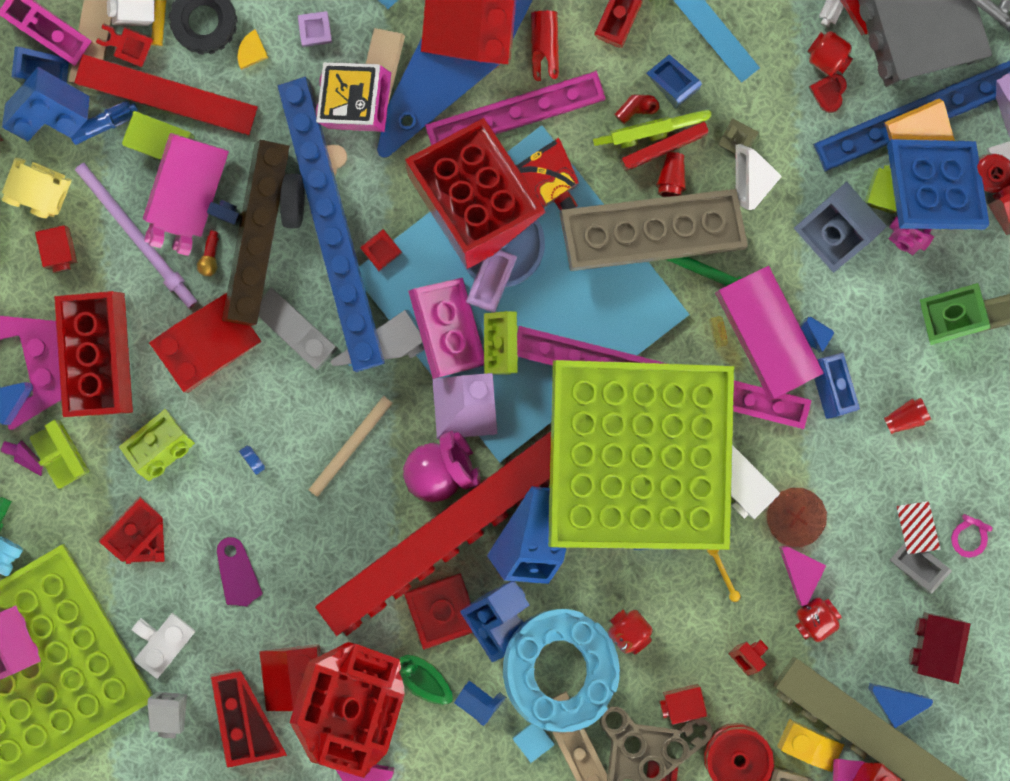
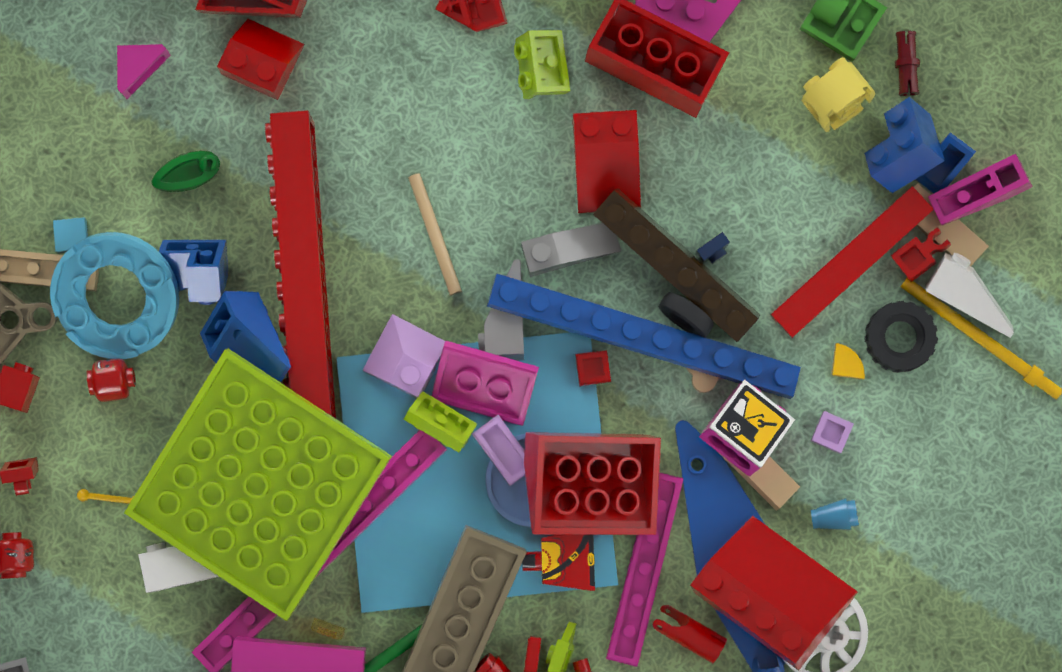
camera: 120 degrees right, 5 degrees down
(56, 248) = (772, 81): red brick -> none
(104, 121) = (861, 195): blue piece -> none
(150, 135) = (816, 229): lime panel -> none
(173, 280) = (680, 167): lavender bar -> none
(183, 191) = (754, 223): dark pink tile -> none
(207, 264) = (676, 206): piece -> none
(237, 574) = (384, 65): magenta piece -> none
(252, 459) = (476, 139): blue tile -> none
(348, 708) = (199, 85): red piece -> none
(437, 610) = (240, 221): red tile -> none
(438, 470) = (361, 298): dark pink tile -> none
(478, 703) = (134, 206): blue tile -> none
(796, 517) = (117, 596): clear red tile -> none
(802, 572) = (63, 570): dark pink slope -> none

